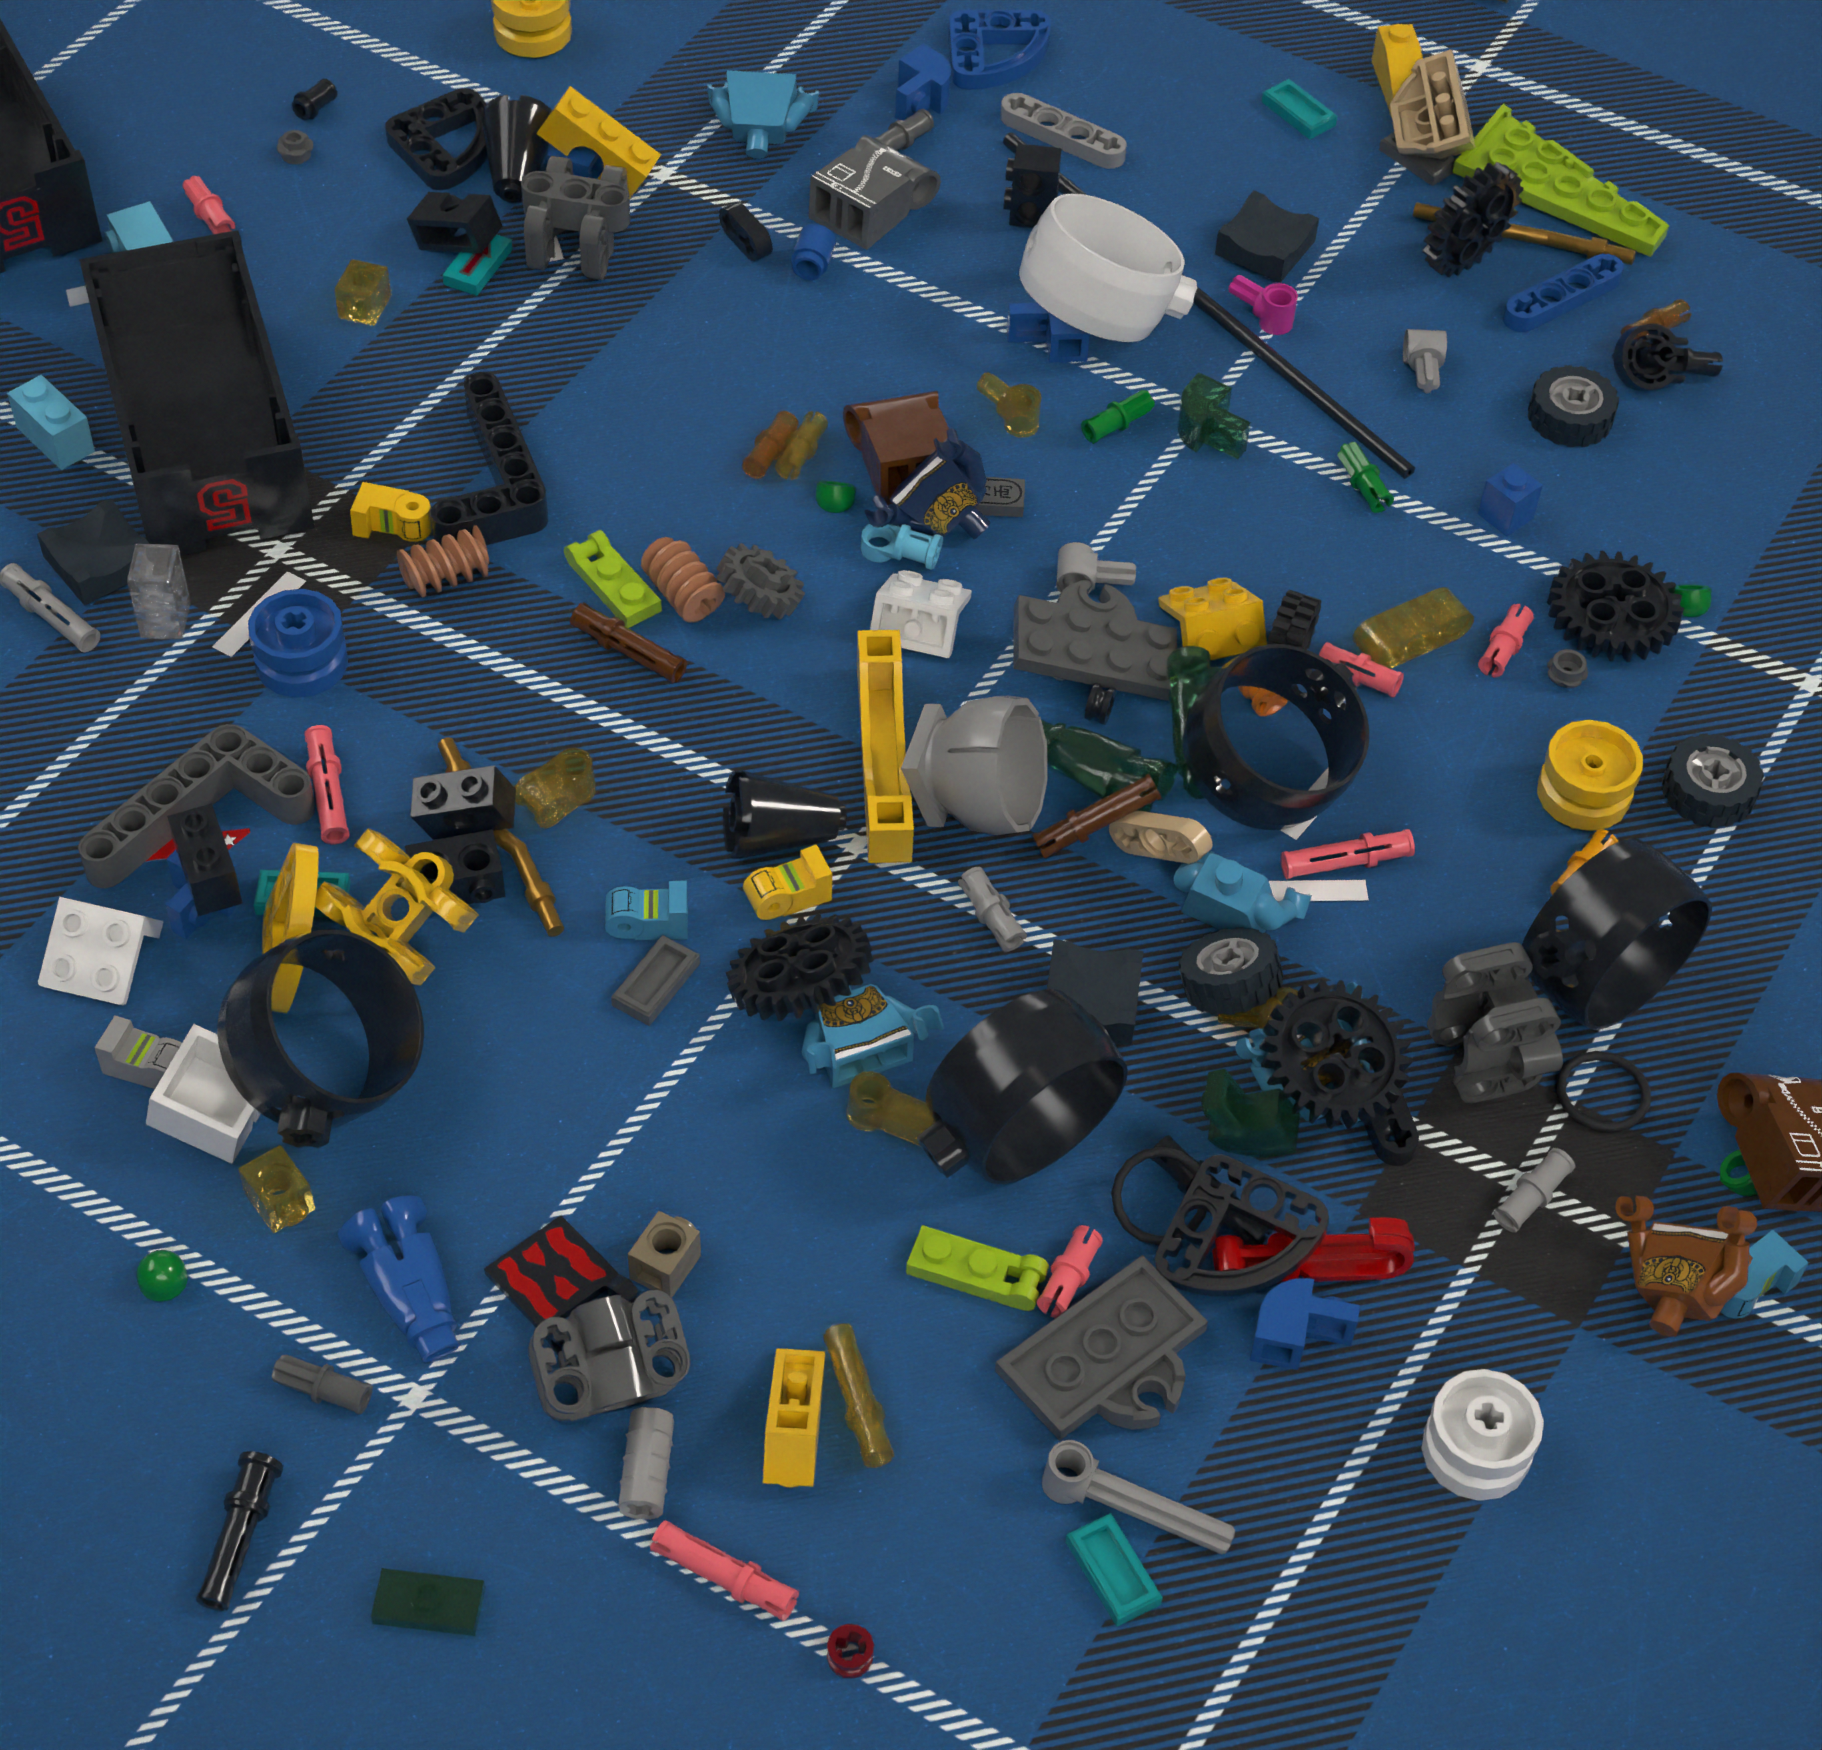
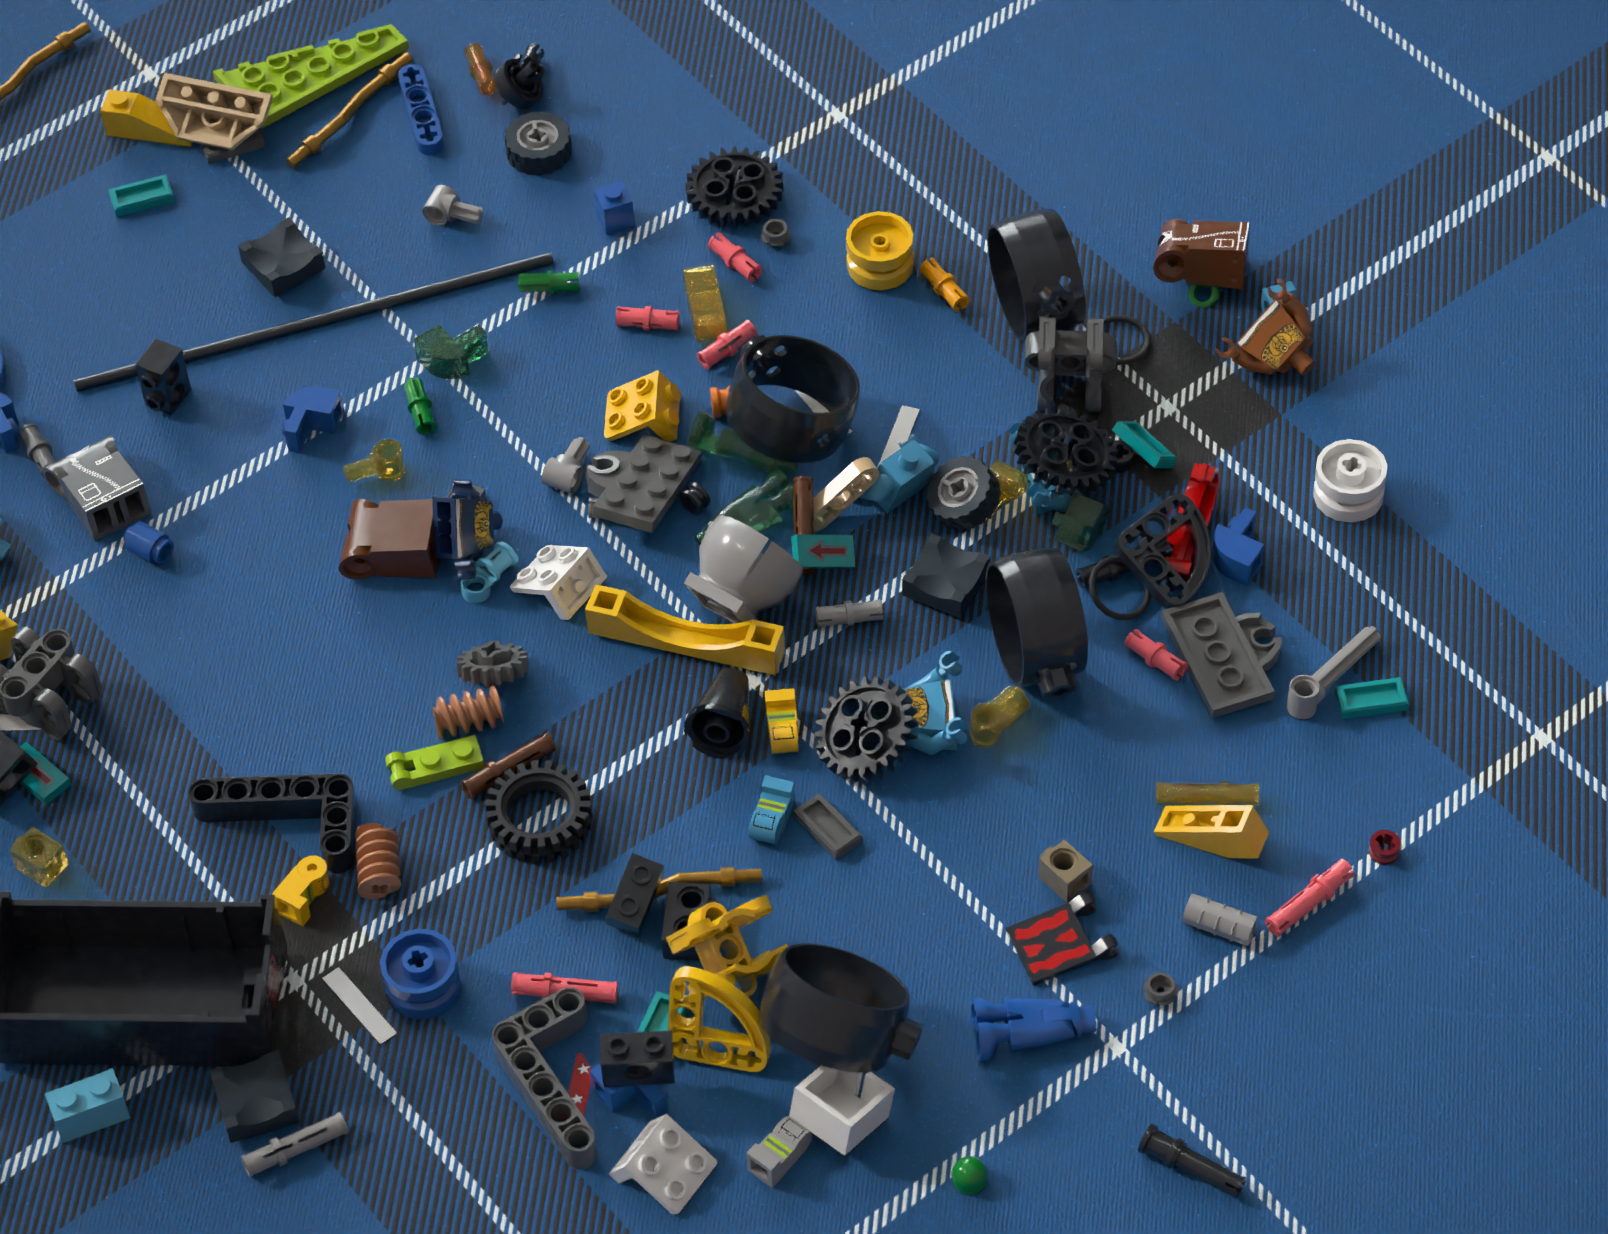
camera: 65 degrees left, 0 degrees up
(159, 591) = (331, 1053): clear brick -> none
(274, 1173) = (929, 1099): clear yellow brick -> none
(322, 1383) = (1094, 1092): dark grey axle -> none
(428, 1602) = (1277, 1066): clear green plate -> none
(509, 1409) = (1160, 981): none -> dark grey plate
(558, 786) = (636, 839): clear yellow piece -> none
(569, 651) = (539, 844): none -> black tyre
(608, 1354) = (1144, 906): dark grey piece -> none
(745, 231) = (100, 581): black beam -> none
(770, 444) = (345, 626): clear orange pin -> none
(801, 445) = (355, 606): clear yellow pin -> none
(835, 495) = (414, 605): green piece -> none
(976, 1268) = (1132, 706): lime plate -> none
(1066, 848) = (823, 551): none -> teal tile
(1099, 147) = (90, 351): light grey beam -> none
(1104, 269) = (279, 349): white cylinder -> none
(1272, 305) = (355, 277): dark pink axle -> none
(1295, 620) = (686, 365): black tyre -> none
(1360, 582) = (648, 318): none -> coral pin
(1396, 845) = (884, 393): coral pin -> none
(1426, 1164) = (1145, 444): none -> teal tile
(1473, 219) = (351, 125): black gear -> none
(1534, 1190) = (1183, 398): light grey pin -> none
(1695, 599) = (741, 141): green piece -> none
(1712, 780) = (904, 190): black wheel -> none

